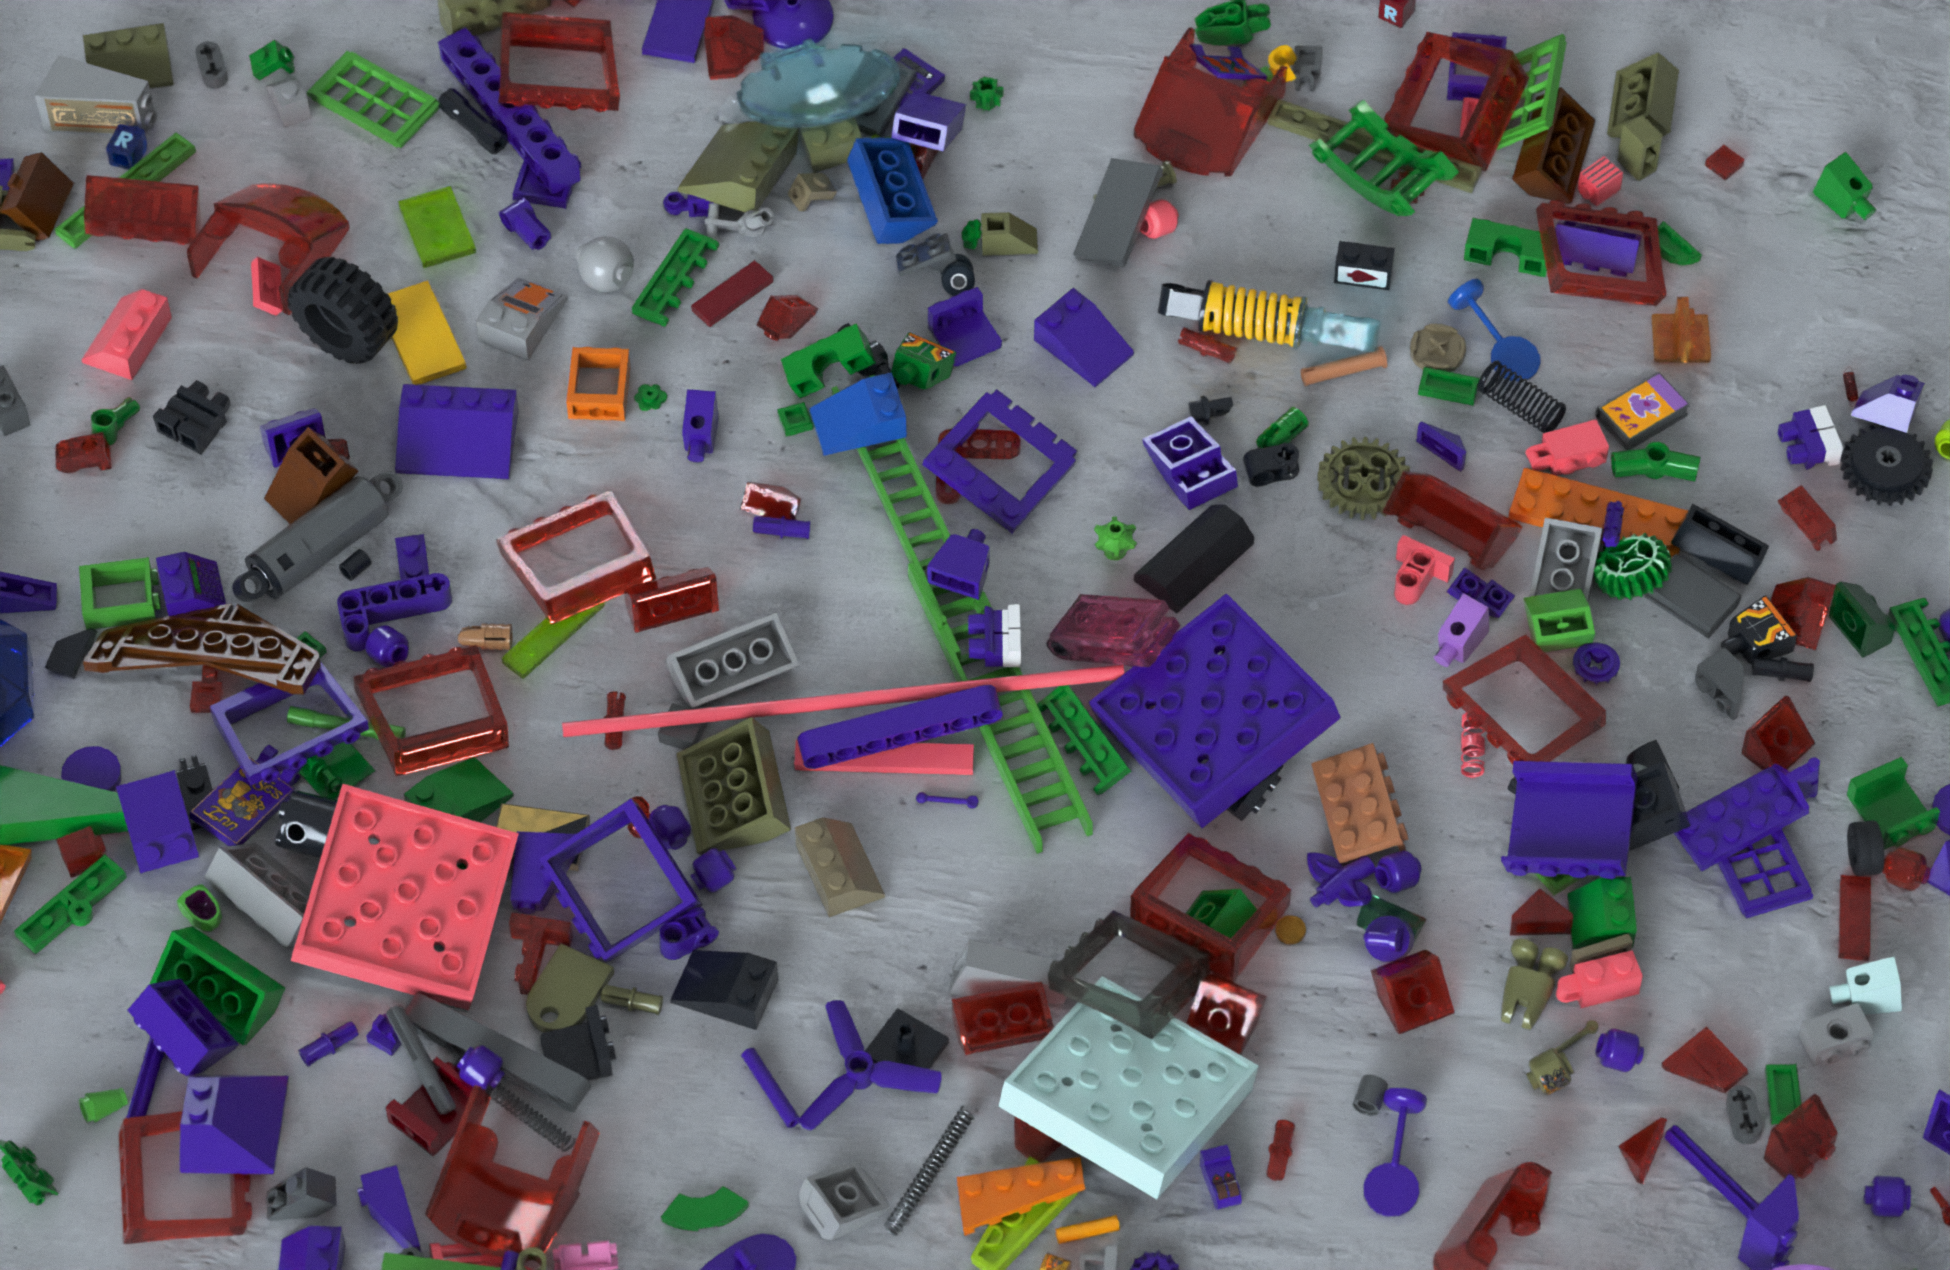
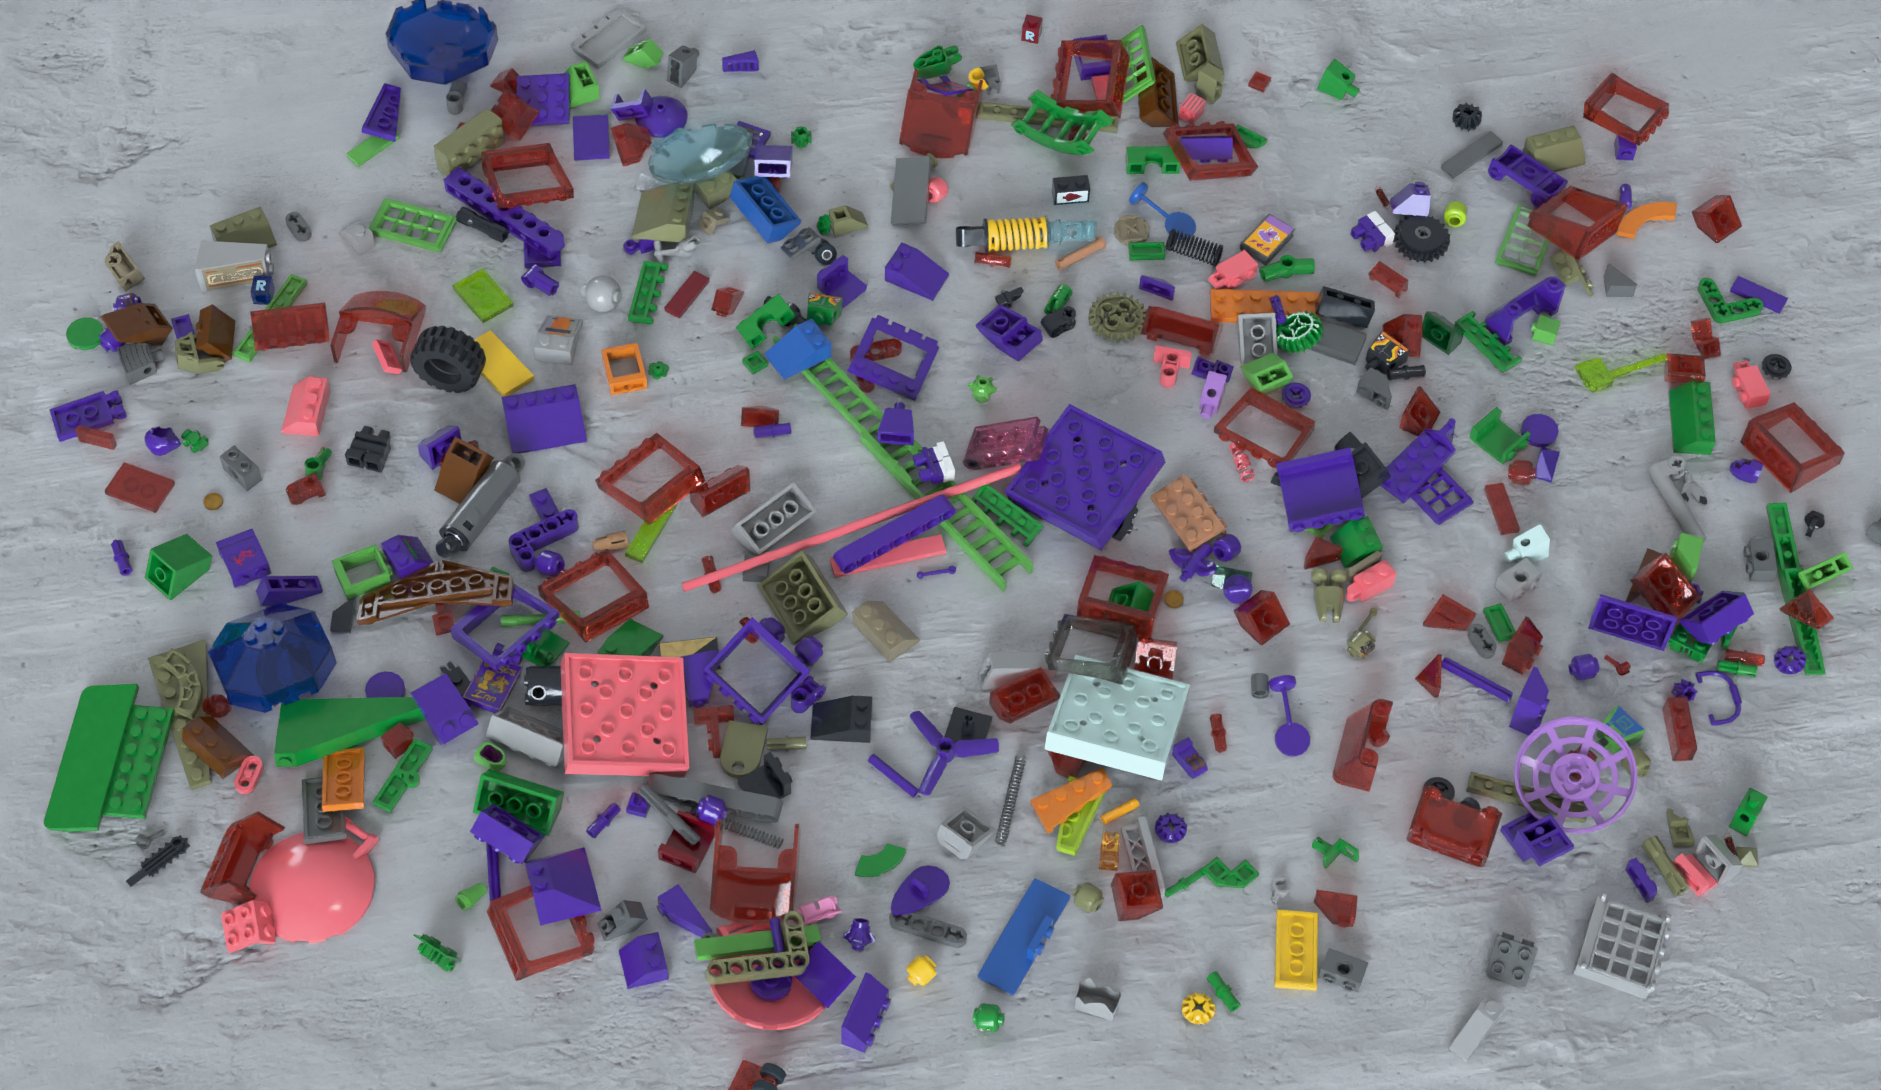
camera: 20 degrees left, 0 degrees up
(271, 58) = (336, 214): green bracket -> none
(355, 564) = (509, 517): black hinge -> none
(700, 423) = (699, 378): dark purple torso -> none
(1196, 557) = (1033, 387): black piece -> none
(1619, 1050) = (1396, 621): dark purple head -> none
(1681, 335) = (1273, 189): clear orange bracket -> none
(1865, 848) = (1495, 465): black tyre -> none

